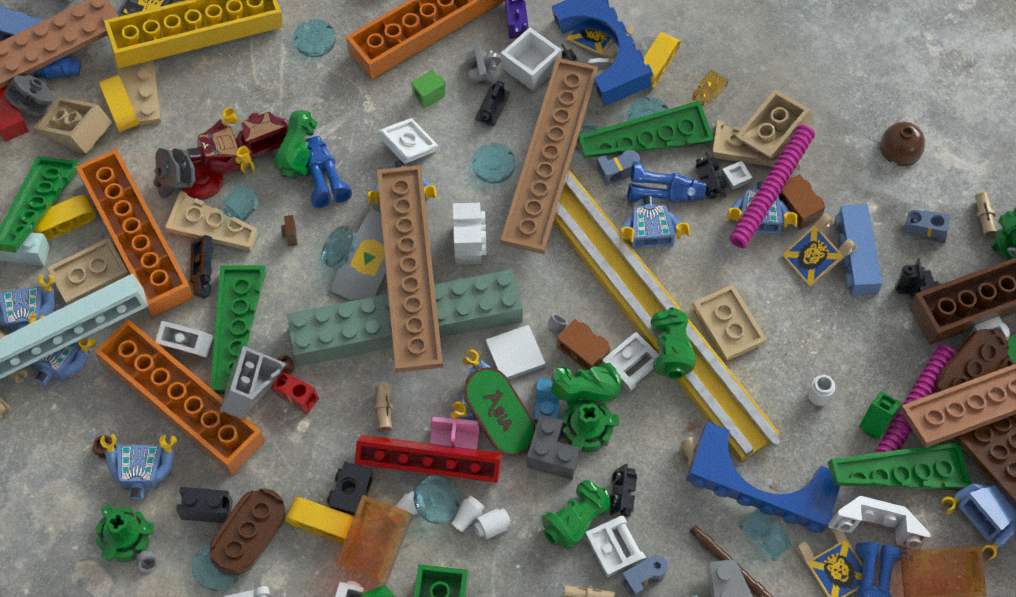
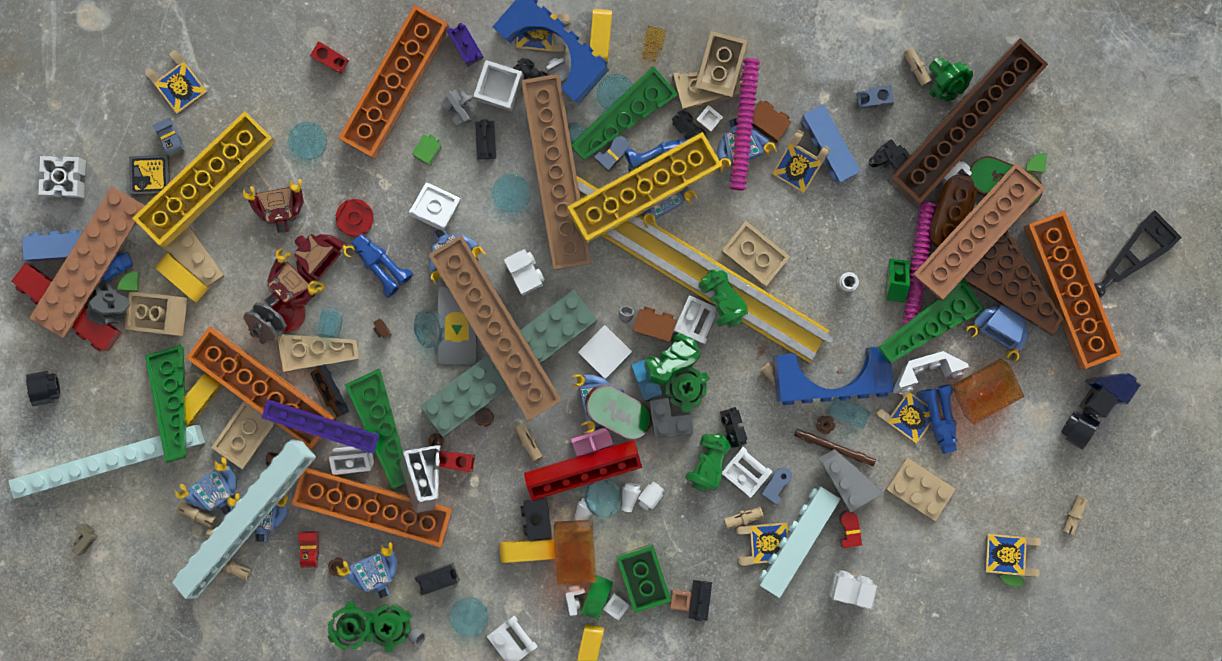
camera: 20 degrees left, 25 degrees up
(65, 88) = (130, 282): none -> bright green tile
(79, 507) = (352, 615): none -> green piece
(85, 412) = (309, 548): none -> red leg
(172, 284) = (320, 426): none -> dark purple plate
(247, 531) = (478, 582): reddish brown tile -> none
(252, 77) = (277, 205): none -> torso
(294, 150) = (351, 264): green animal -> none
(328, 119) = (354, 217): none -> red tile
(349, 357) = (489, 417): none -> reddish brown plate
(636, 197) = (644, 188): none -> yellow brick
(732, 540) = (825, 429): none -> reddish brown plate
(903, 143) = (829, 28): reddish brown cylinder -> none

